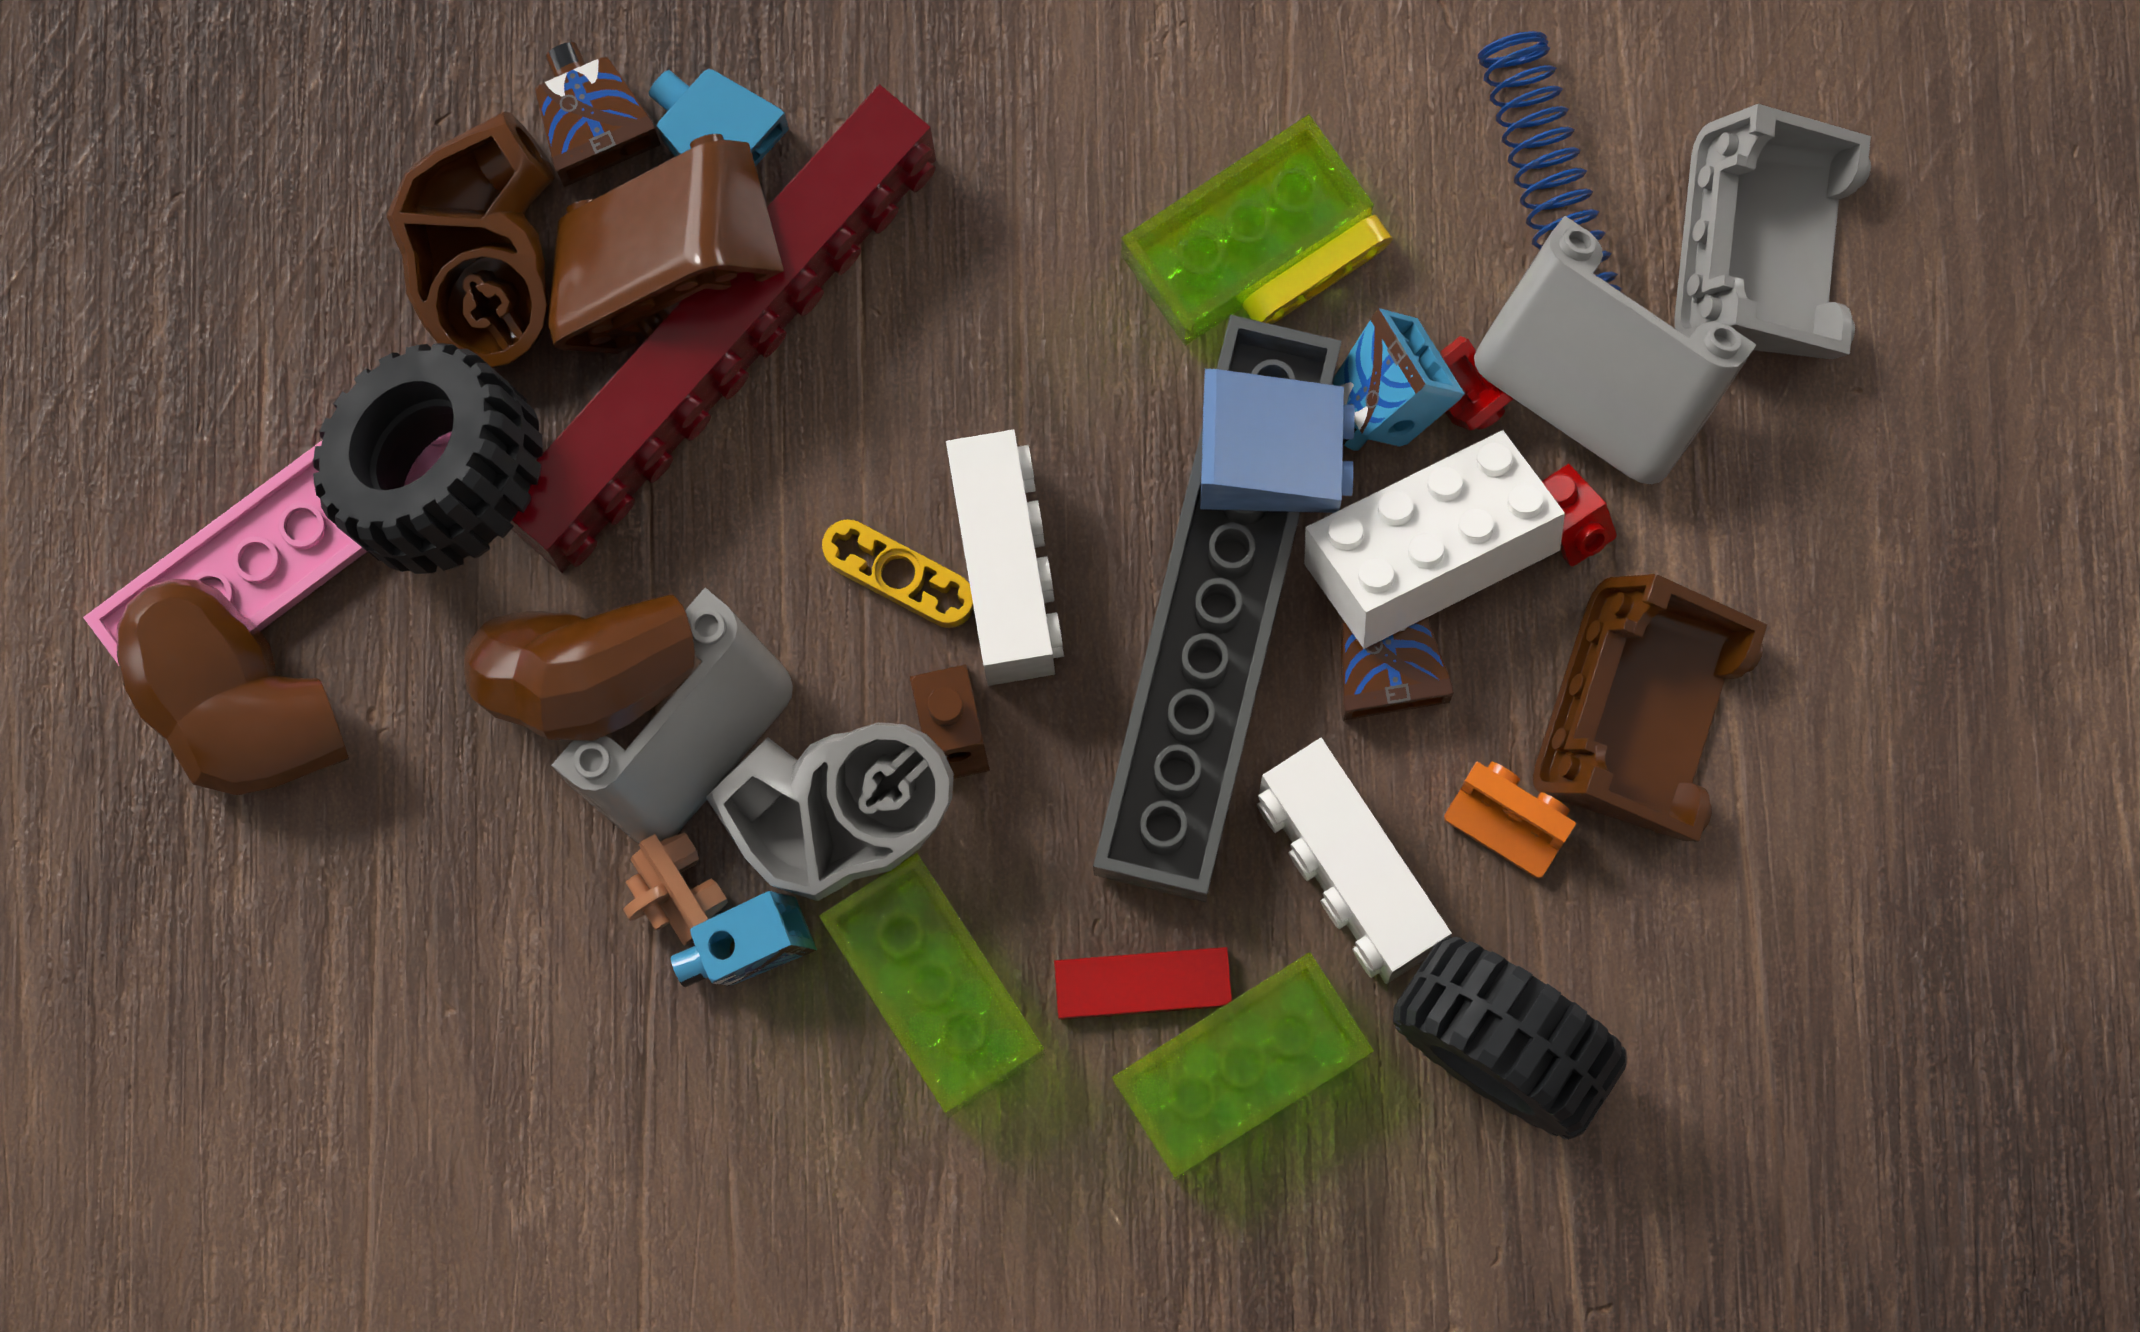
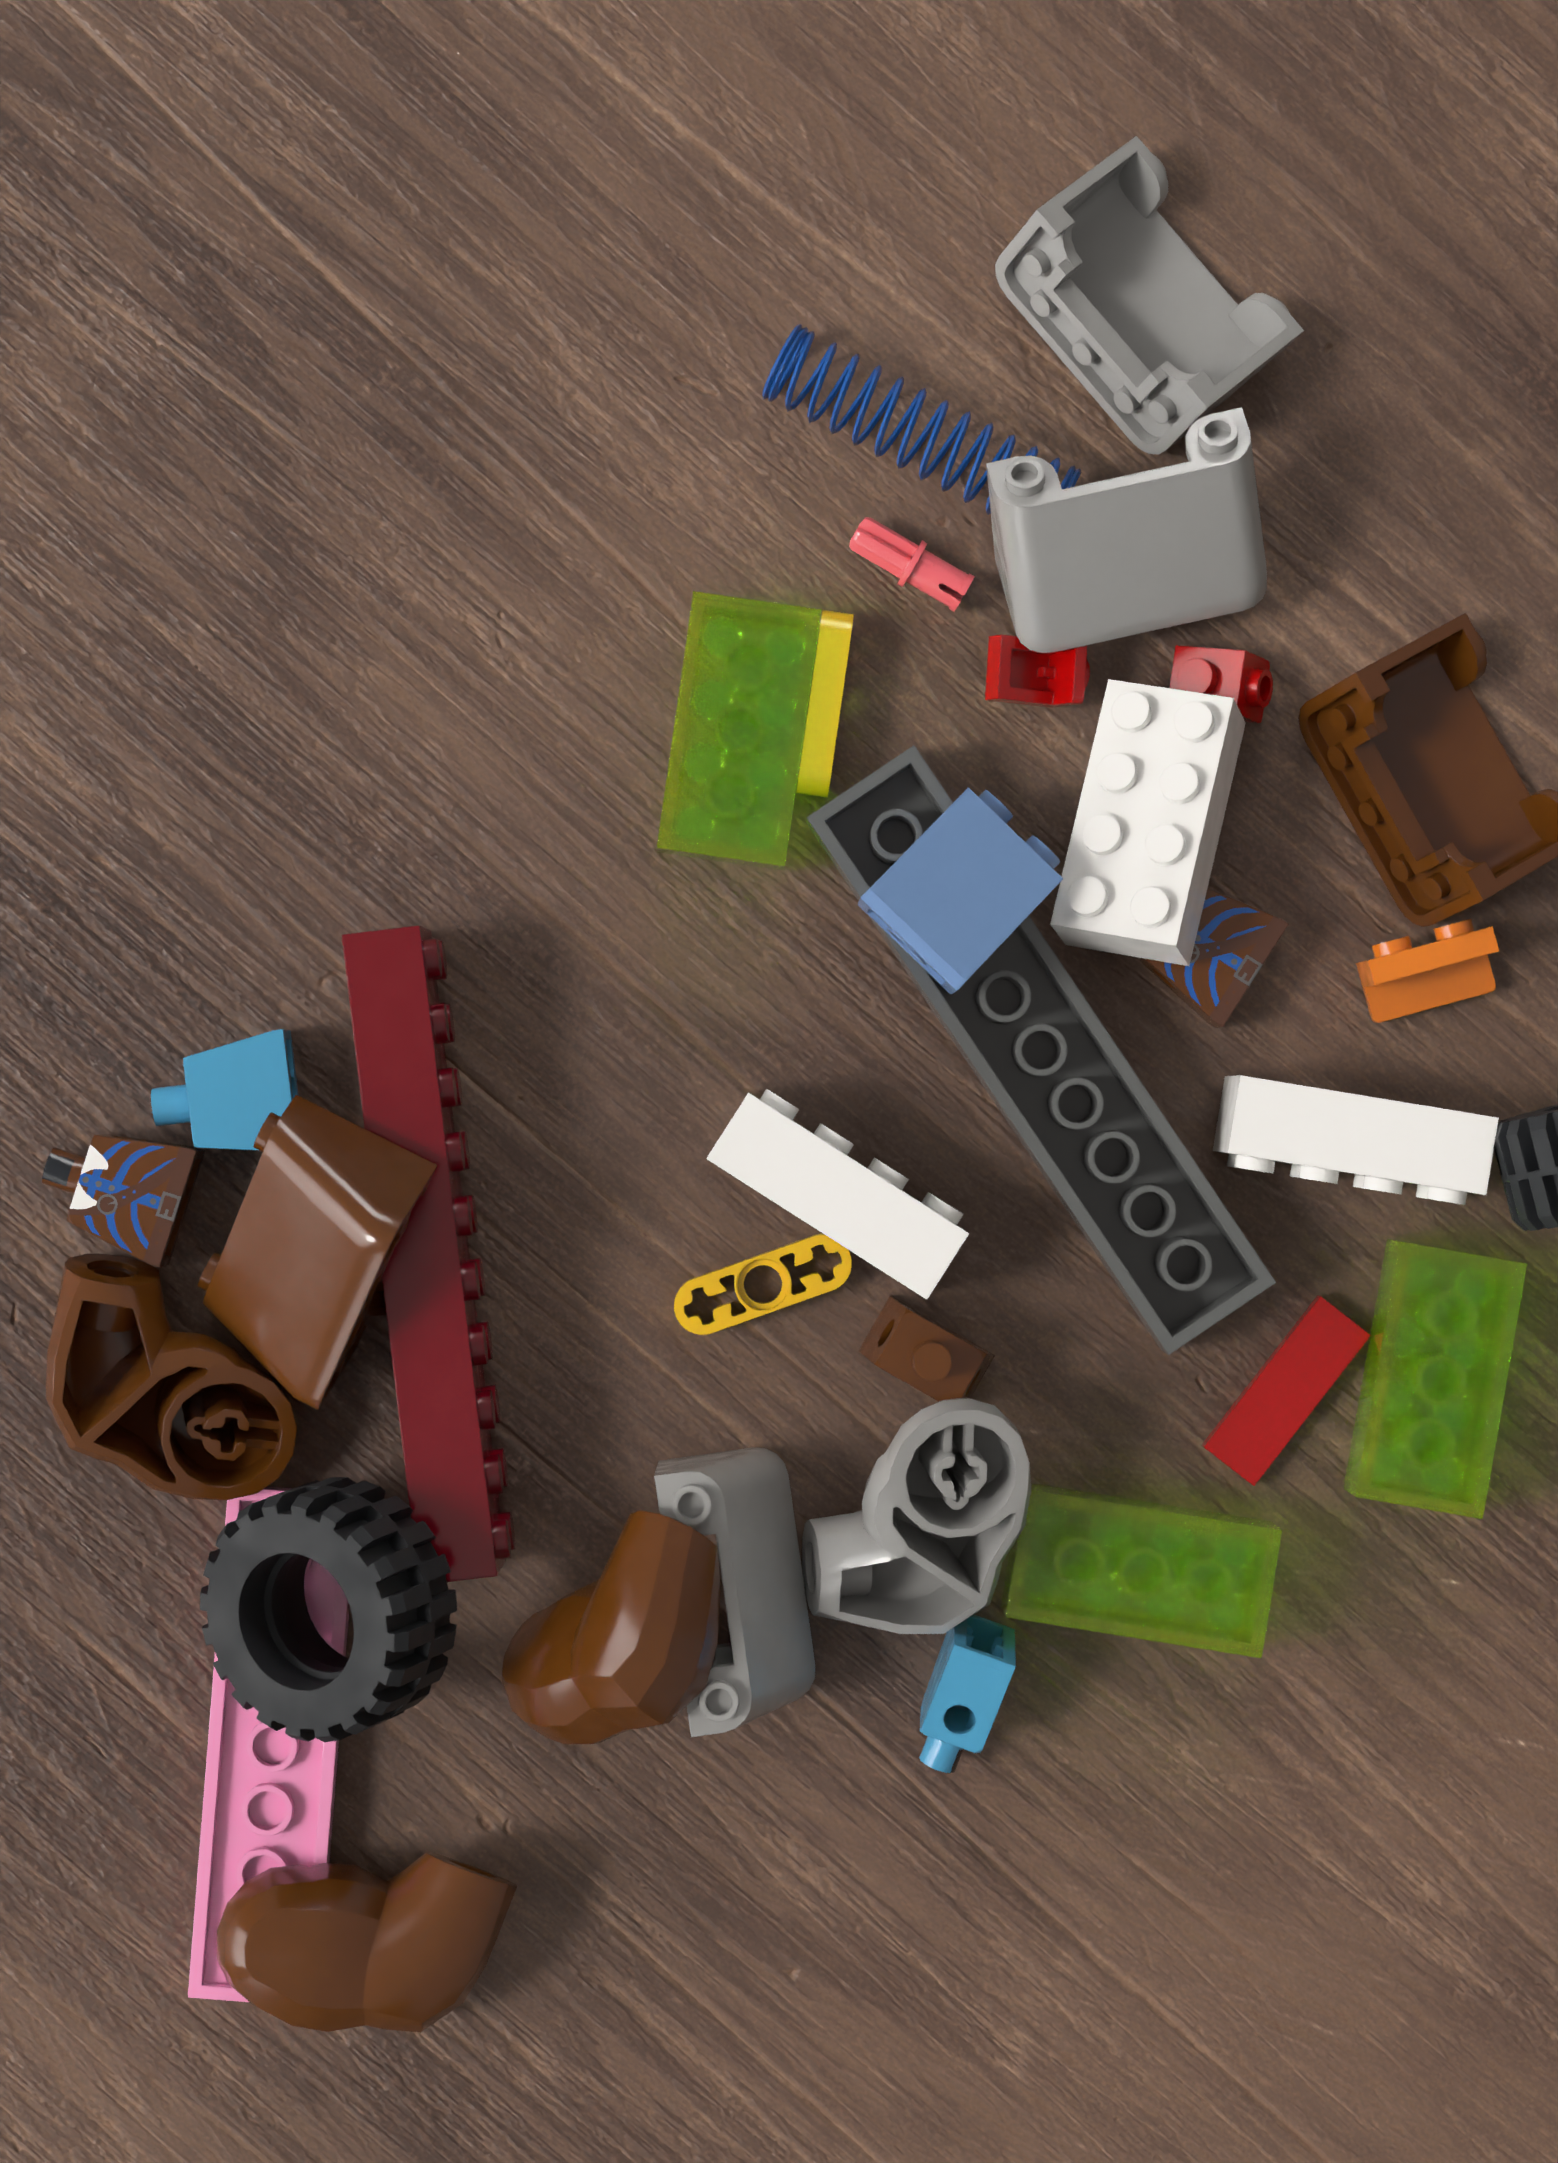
camera: 60 degrees left, 10 degrees up
(663, 892) = (889, 1711): nougat hips -> none
(1395, 381) = (984, 728): dark azure torso -> none
(1461, 246) = (910, 562): none -> coral axle

